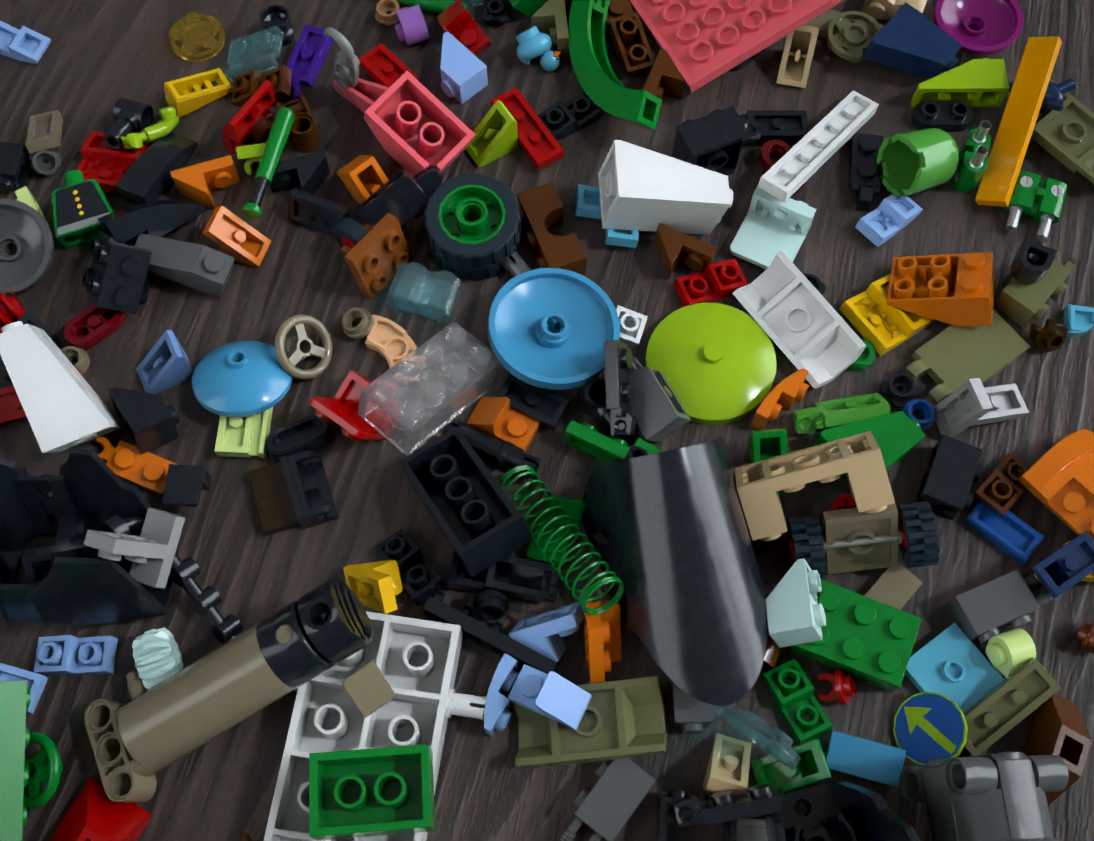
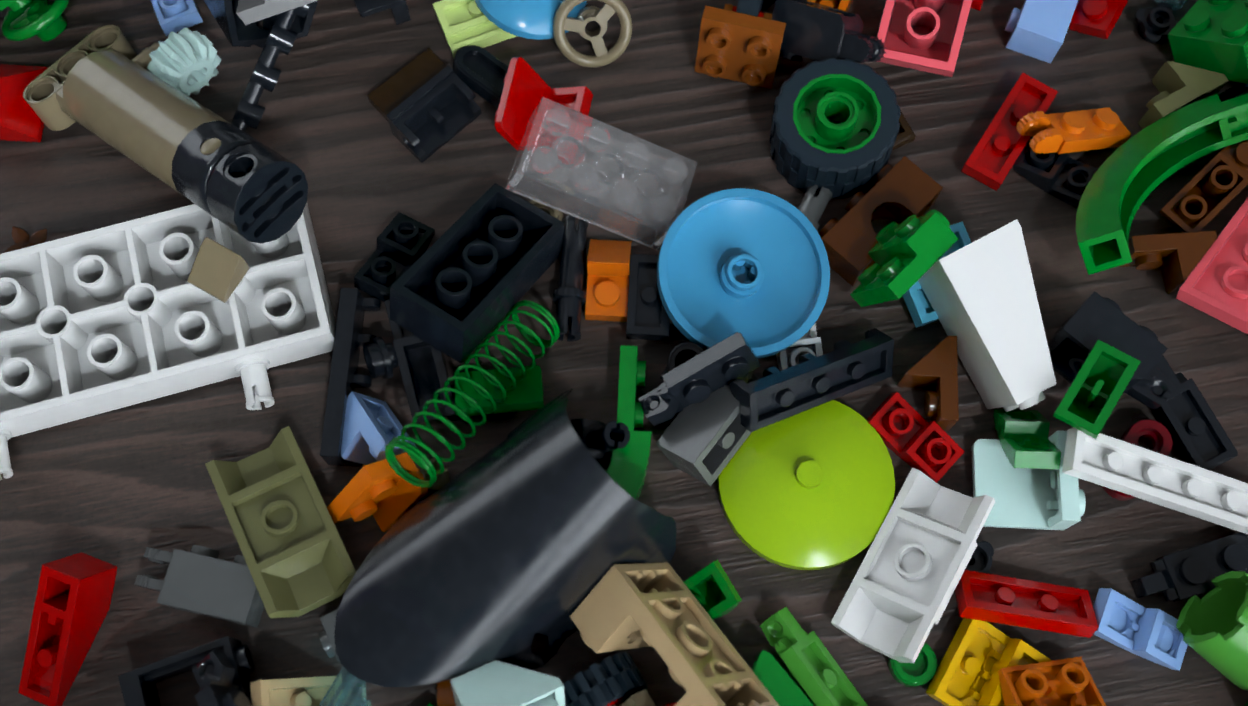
camera: 65 degrees right, 5 degrees up
(354, 317) = (653, 69): dark tan plate -> none
(371, 792) = (98, 322): green brick -> none
(375, 584) = (352, 230): yellow slope -> none
(389, 340) = (652, 113): light nougat tile -> none
(424, 292) = (728, 119): clear light blue brick -> none
(494, 136) = (973, 97): lime slope -> none
(497, 705) = (271, 415): light blue slope -> none
(533, 44) = (1132, 84): medium azure animal -> none
(550, 90) = (1073, 131): none -> orange hinge
(550, 696) = (289, 465): light blue slope -> none
(599, 223) = (903, 257): none -> green plate
(651, 318) = (814, 380): none -> black hinge
(742, 155) = (1096, 389): none -> green slope
(746, 219) = (1026, 440): none -> green slope
(781, 397) = (807, 589): orange slope -> none
(851, 269) = (1025, 604): none -> red plate

